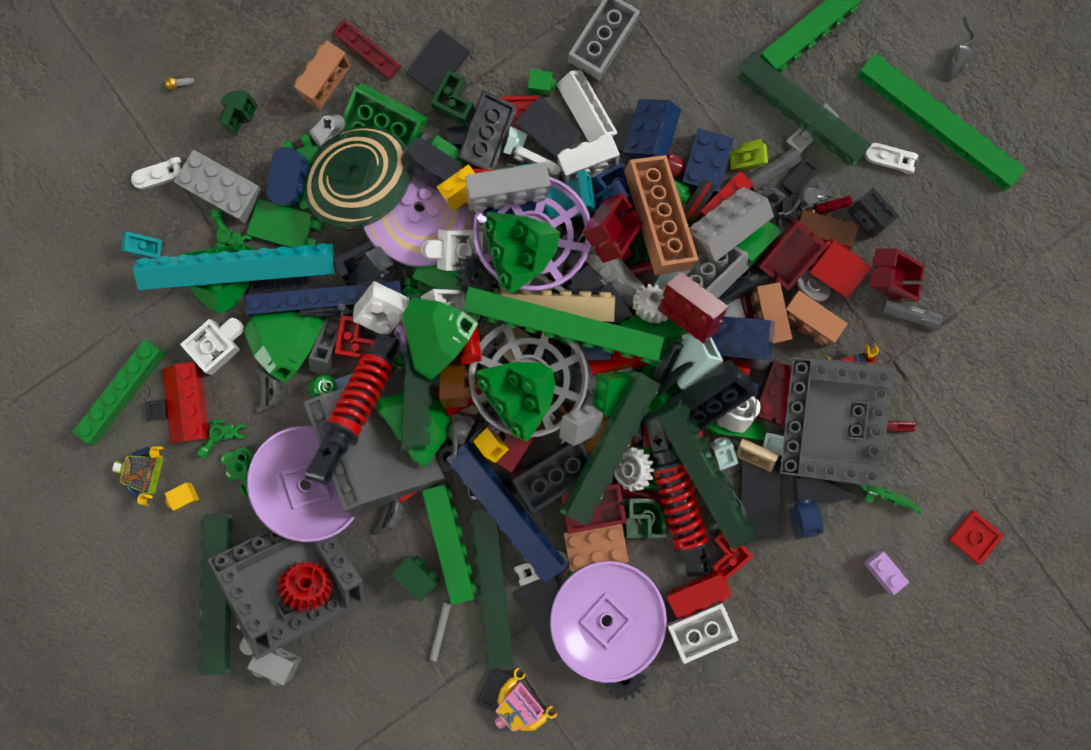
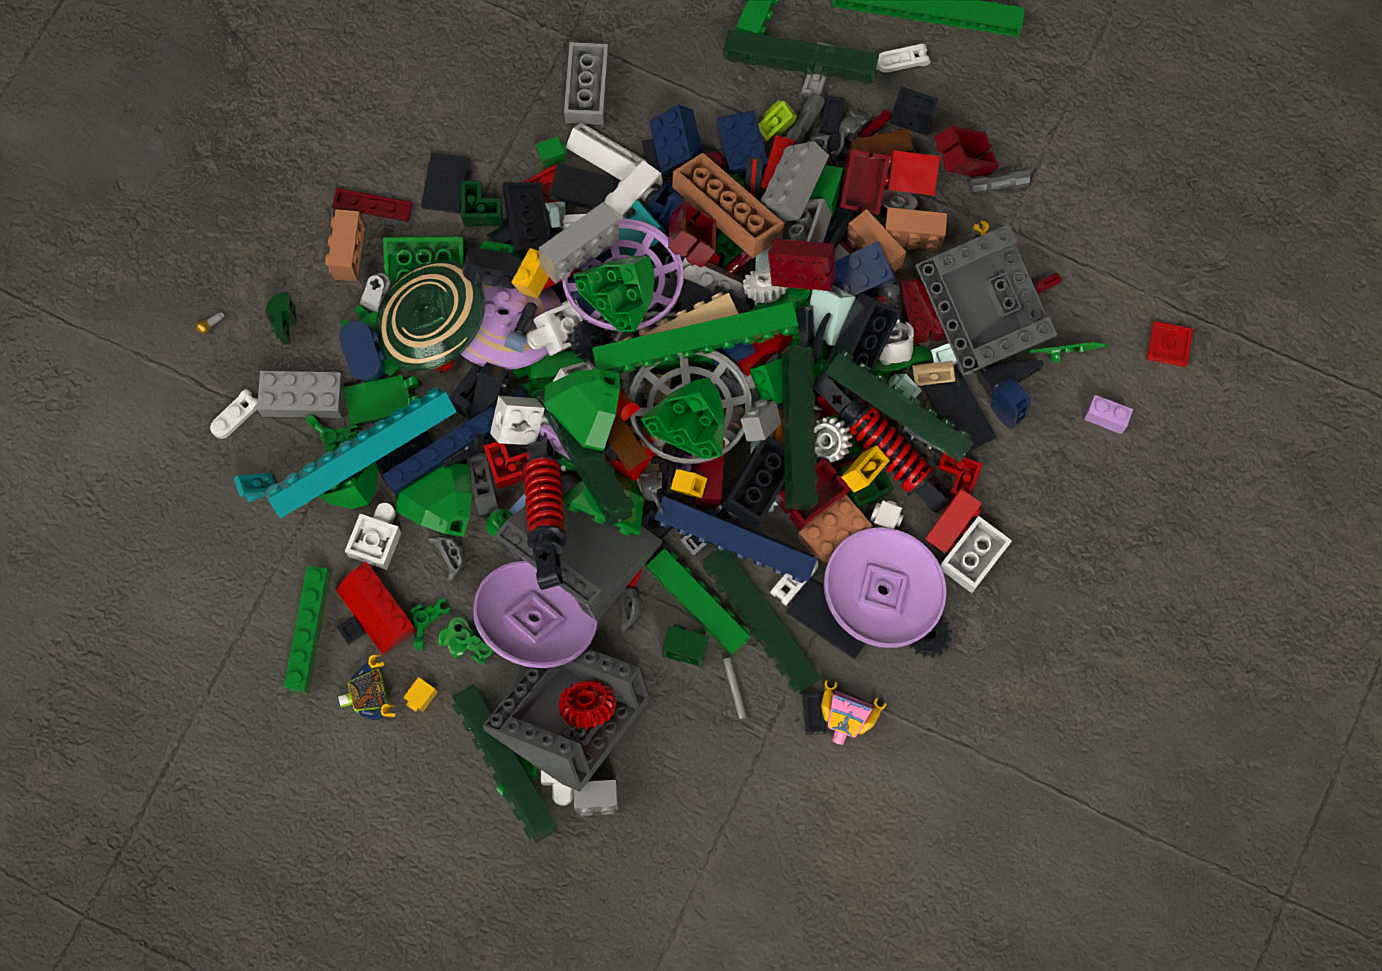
camera: 30 degrees left, 10 degrees down
(414, 240) = (517, 339): none -> piece
(646, 556) = (886, 515): none -> white brick
(648, 513) = (865, 468): none -> yellow brick

